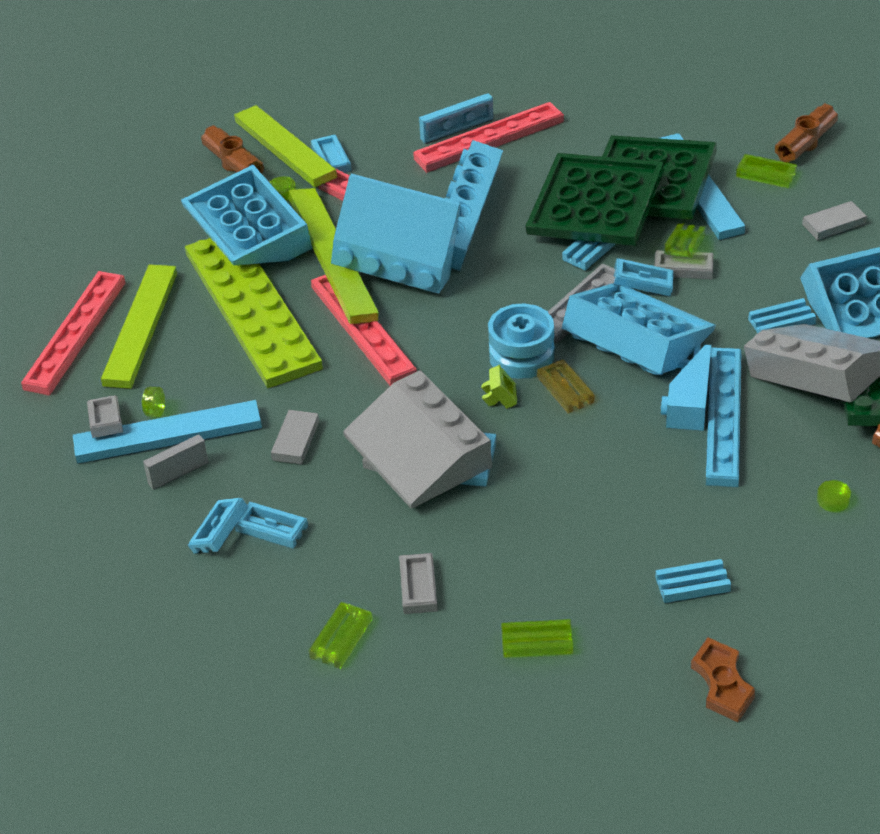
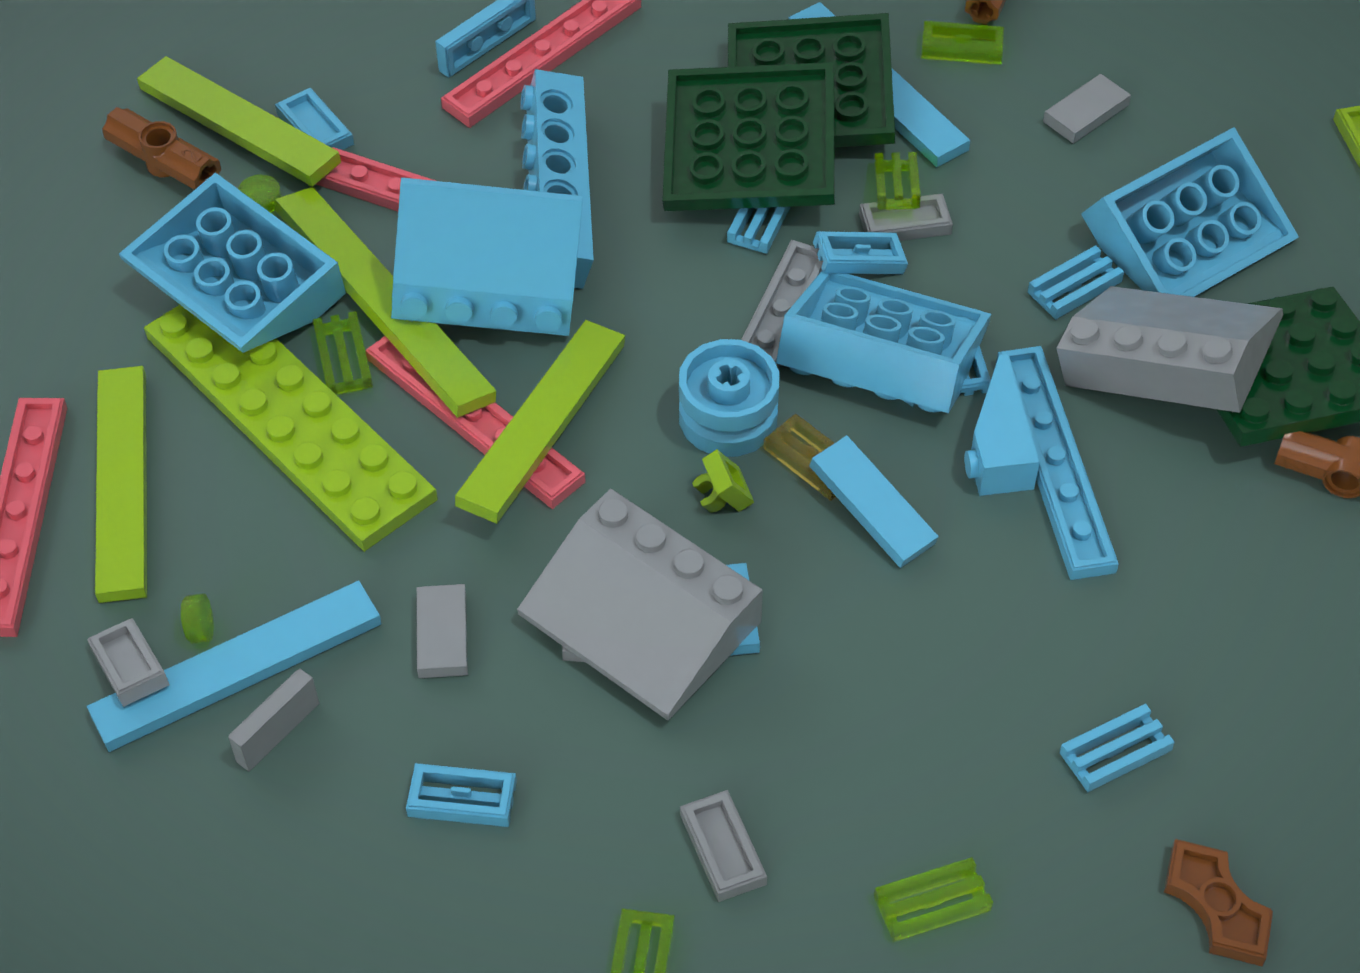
camera: 20 degrees left, 10 degrees up
(217, 525) = (388, 816): medium azure tile -> none
(297, 268) = (337, 328): none -> clear neon green tile
(399, 334) = (539, 422): none -> lime tile
(591, 415) = (873, 501): none -> medium azure tile
(833, 496) = (1255, 561): clear neon green tile -> none

